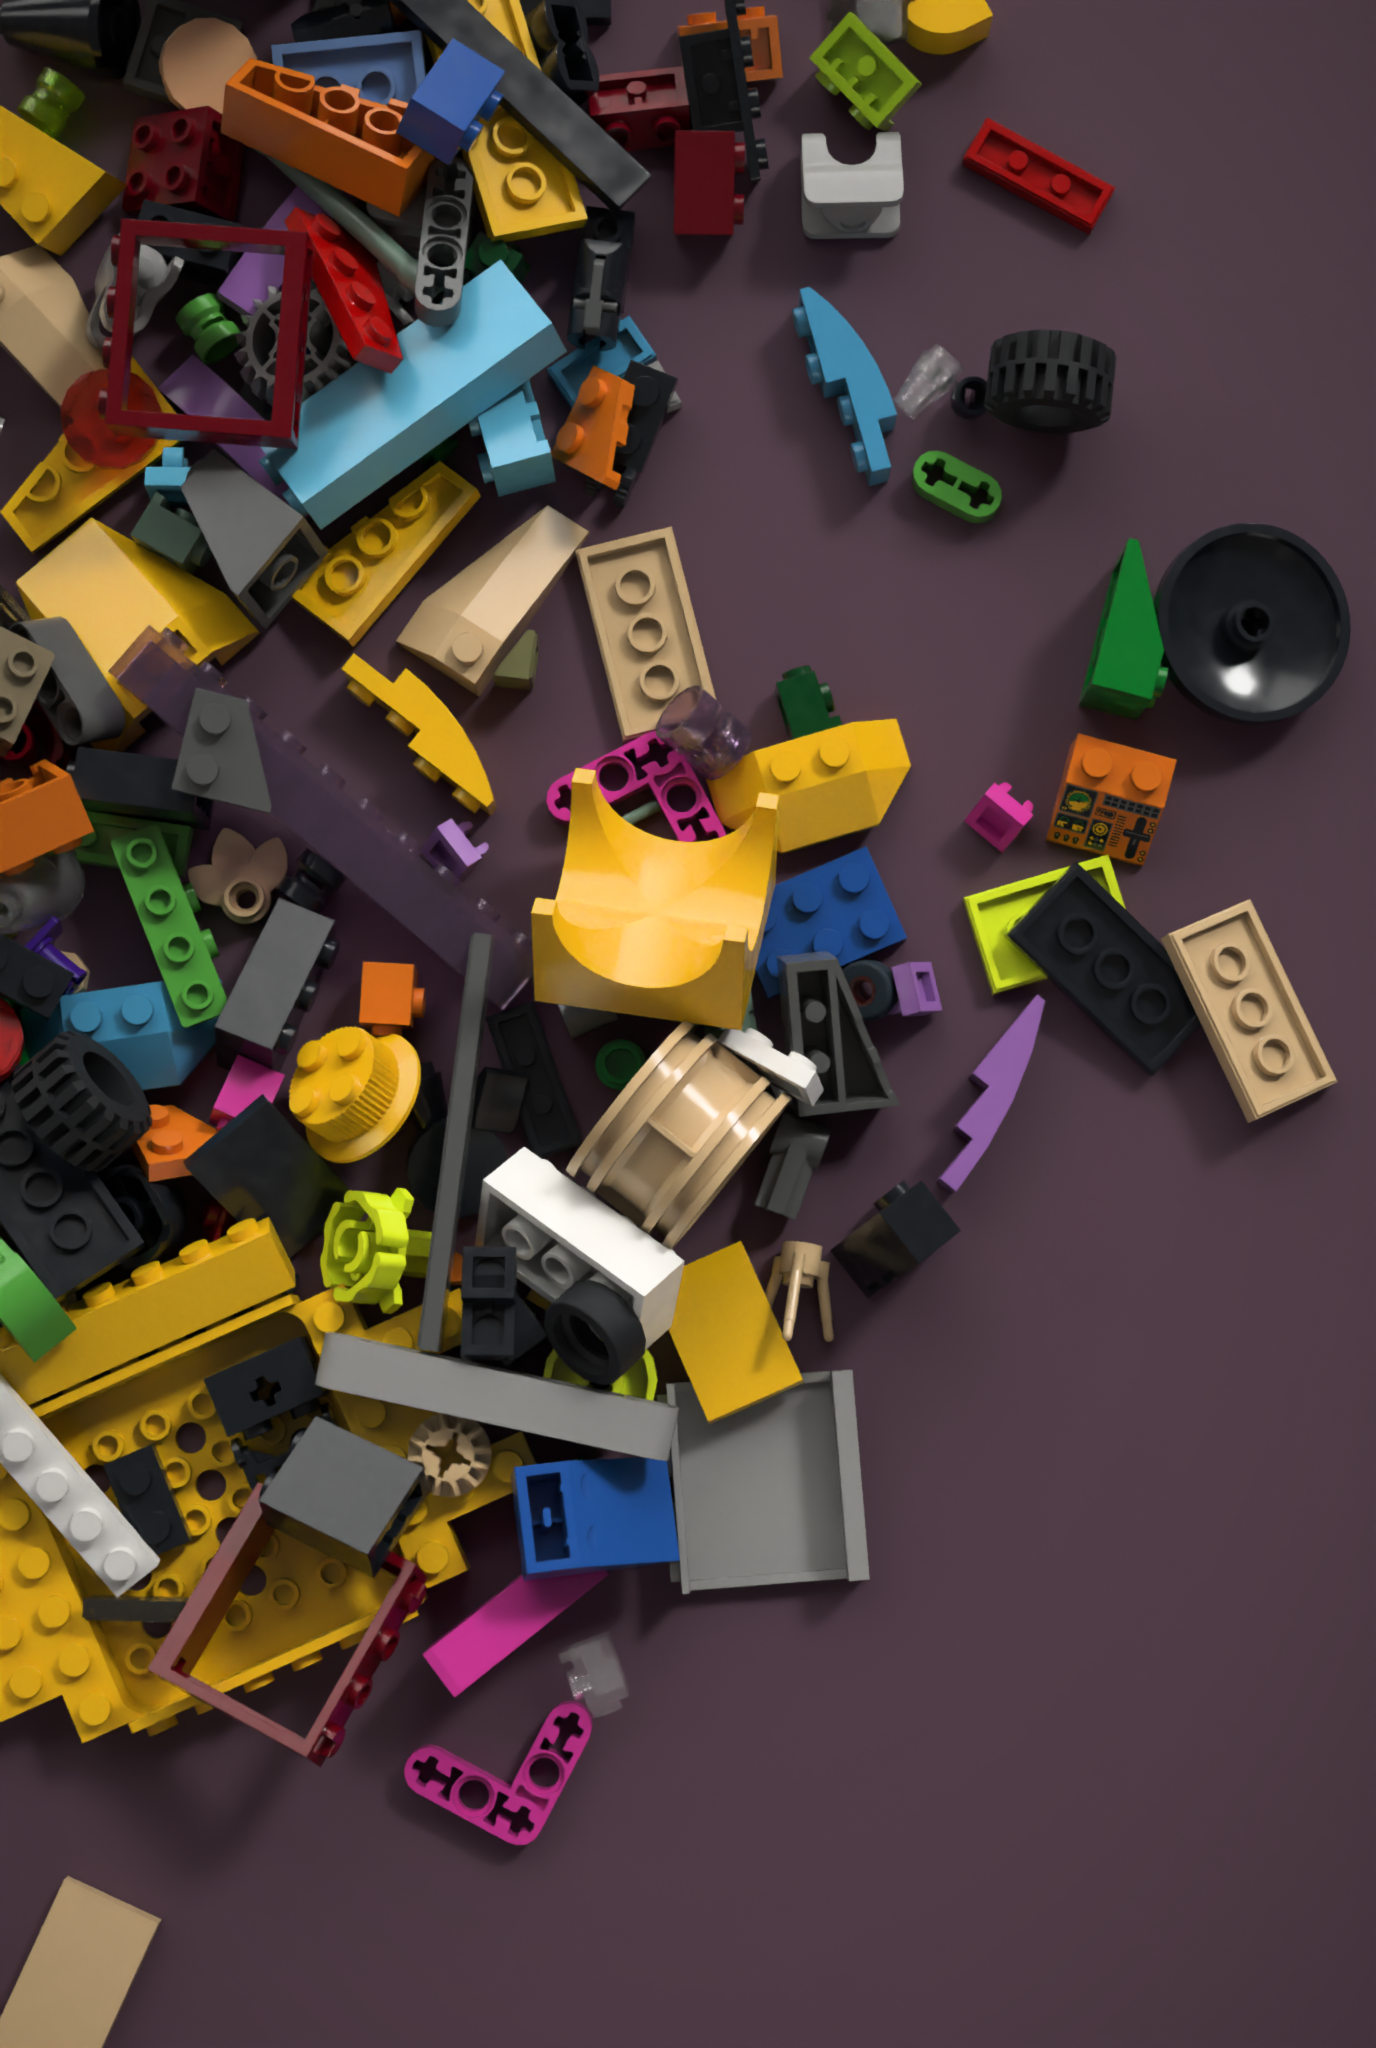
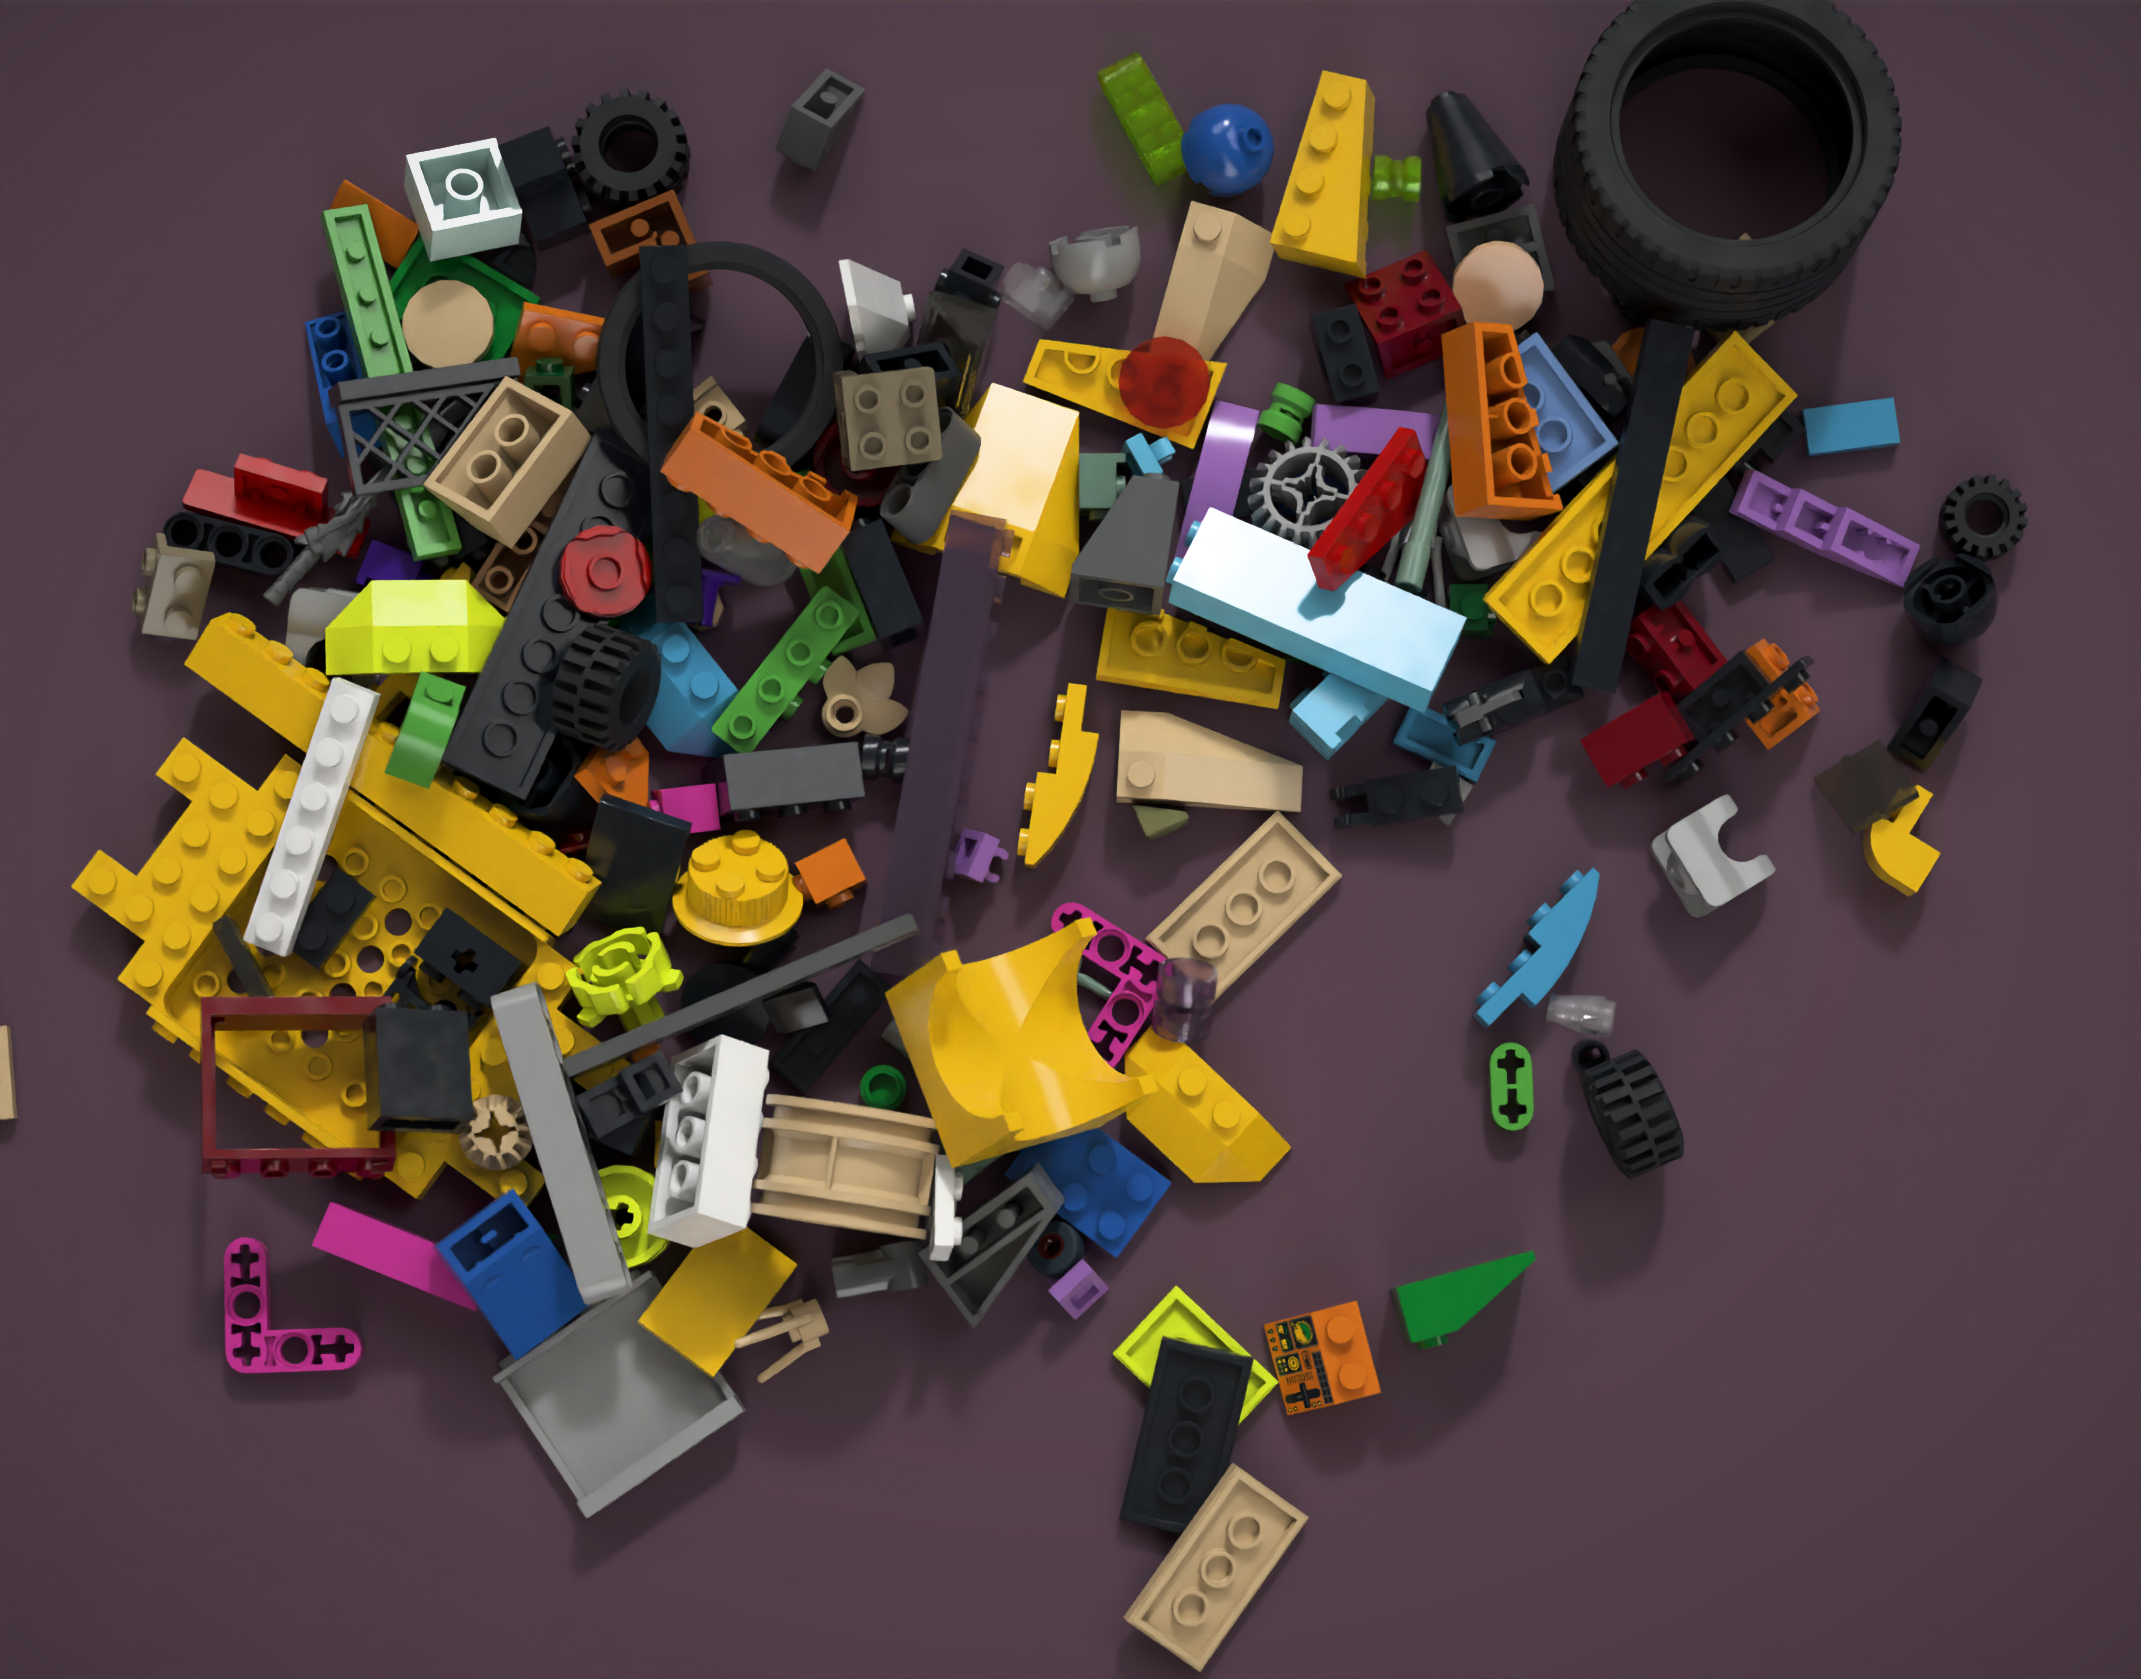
camera: 60 degrees right, 0 degrees up
(153, 284) = (1281, 334): light grey piece -> none
(222, 754) = (937, 636): dark grey wing -> none
(291, 346) = (1299, 494): dark red window -> none
(443, 240) = (1457, 566): dark grey beam -> none
(451, 102) = (1567, 507): blue brick -> none
(596, 427) = (1383, 770): orange wing -> none
(596, 1674) = (393, 1346): clear brick -> none
(611, 1319) = (652, 1190): black tyre -> none
(804, 703) = (1257, 1068): dark green brick -> none
(864, 72) = (1806, 815): lime bracket -> none
(896, 1238) = (866, 1385): black wedge -> none
(999, 816) = (1257, 1276): dark pink tile -> none
(999, 1077) = (1047, 1396): medium lavender slope -> none
(1038, 176) = (1812, 1005): red tile -> none
(1291, 618) = (1567, 1414): black dish -> none

